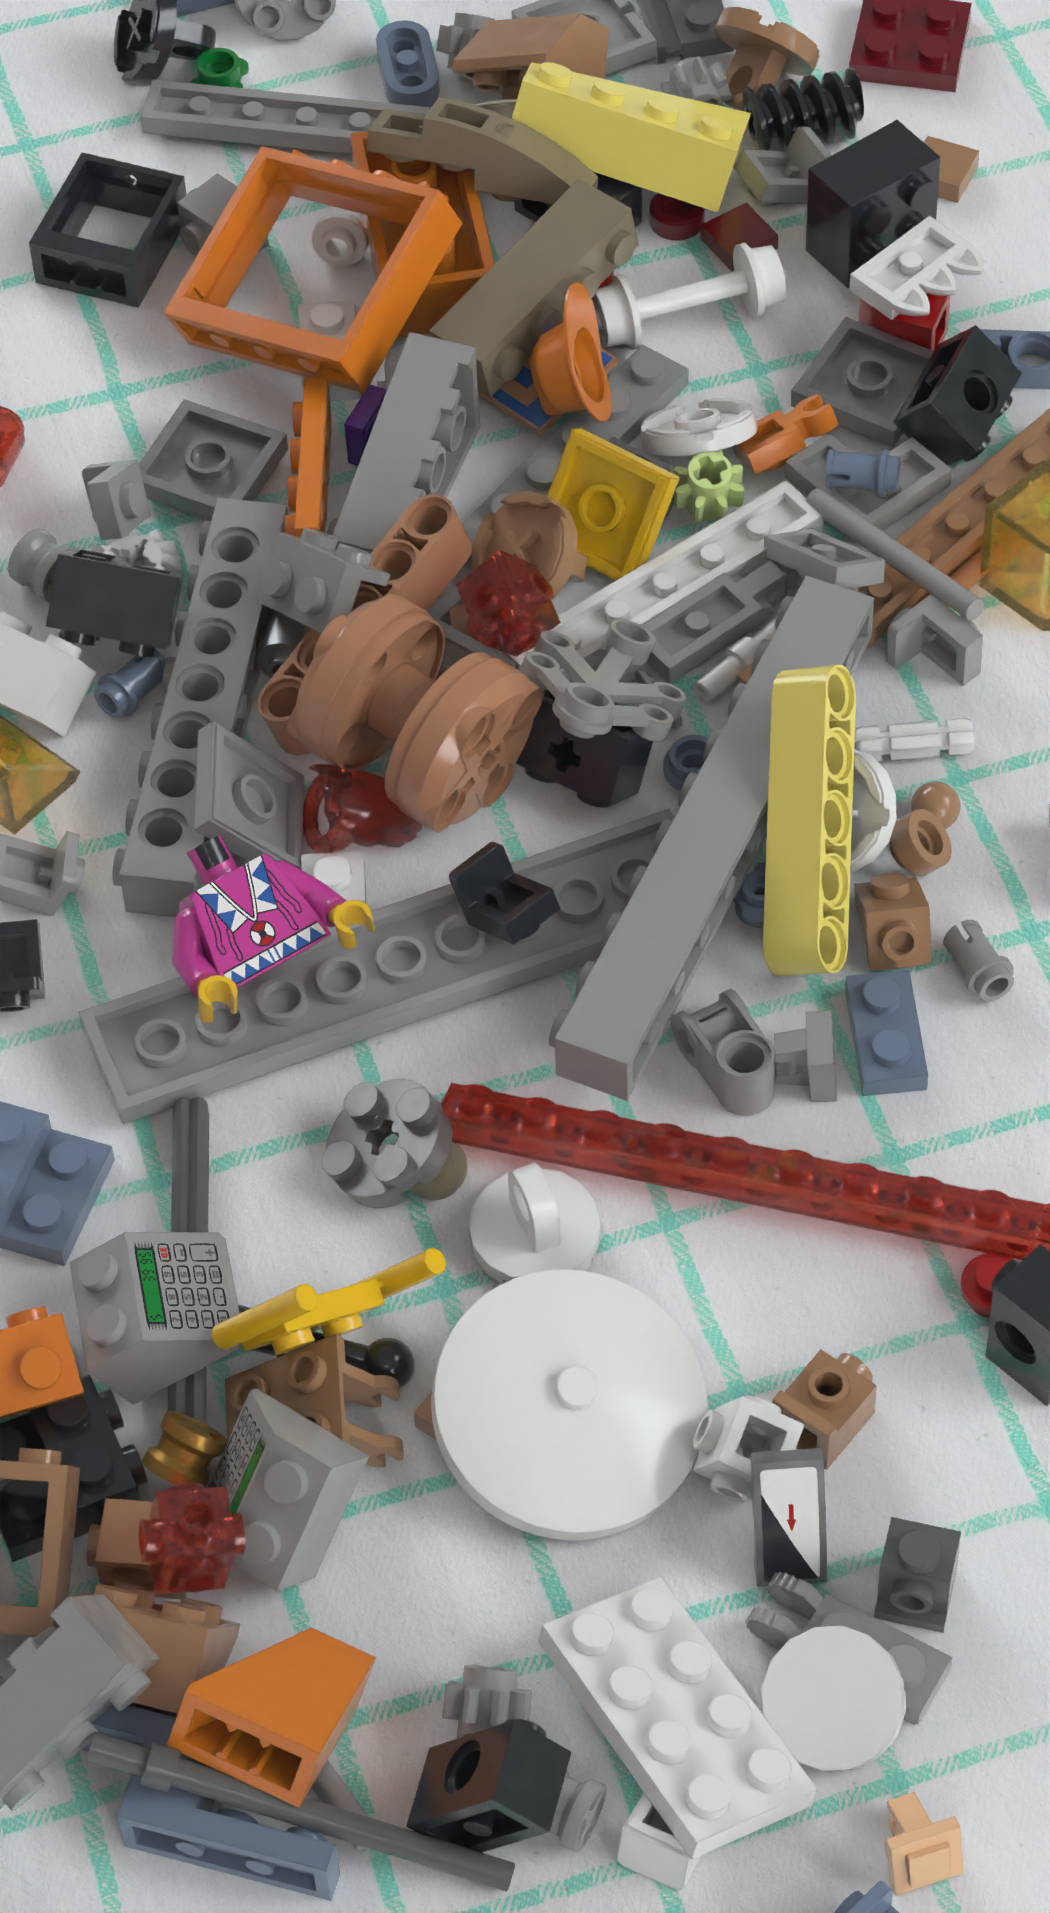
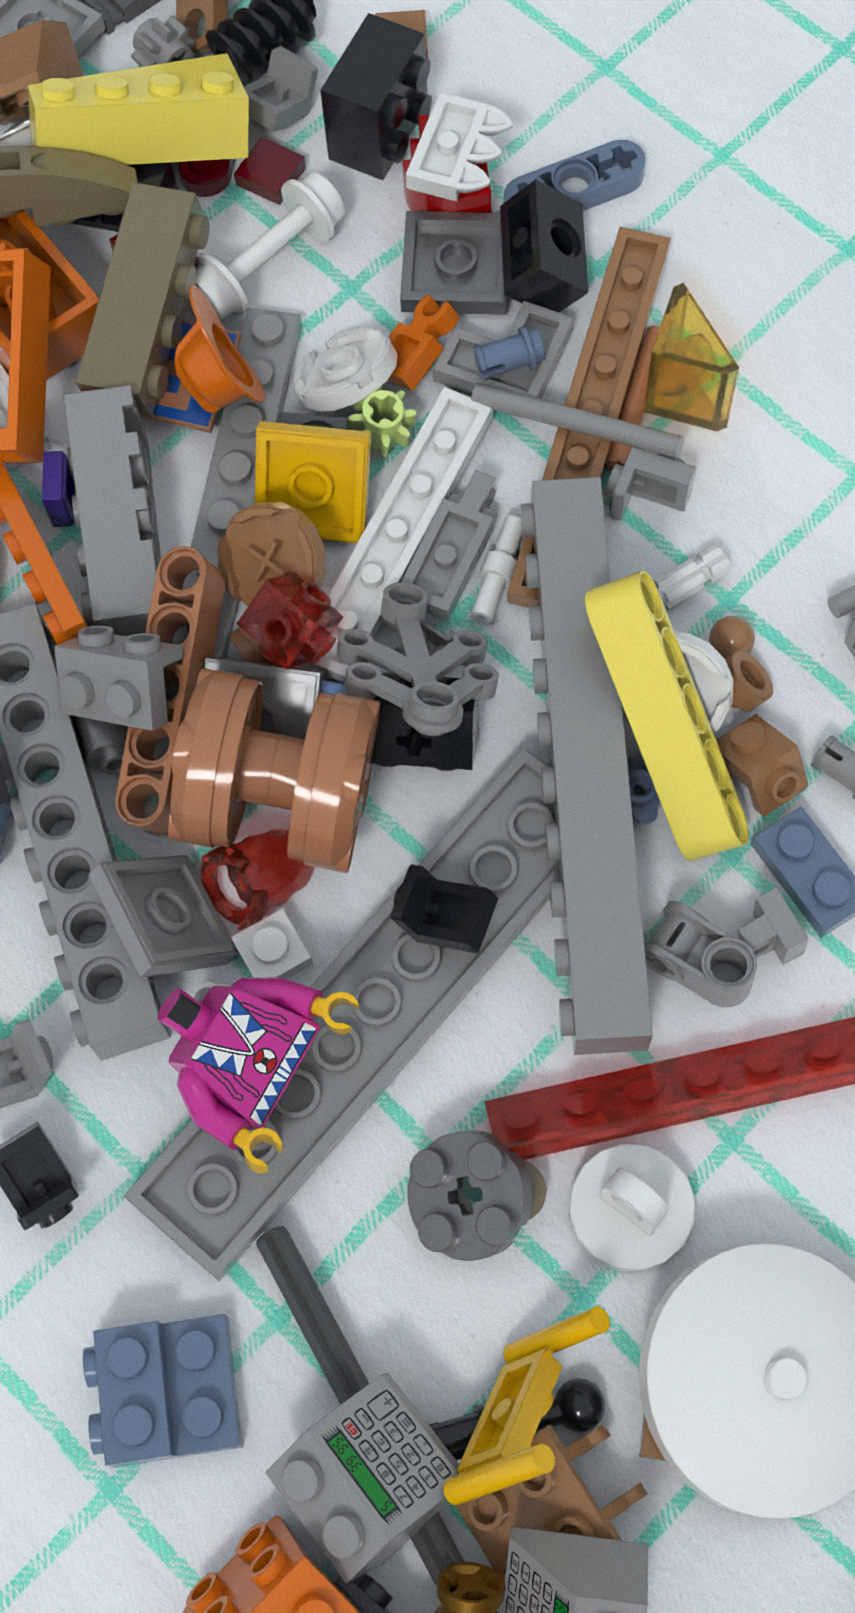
camera: 25 degrees left, 15 degrees up
(681, 757) = (517, 677): sand blue plate -> none
(823, 558) = (525, 453): light grey plate -> none

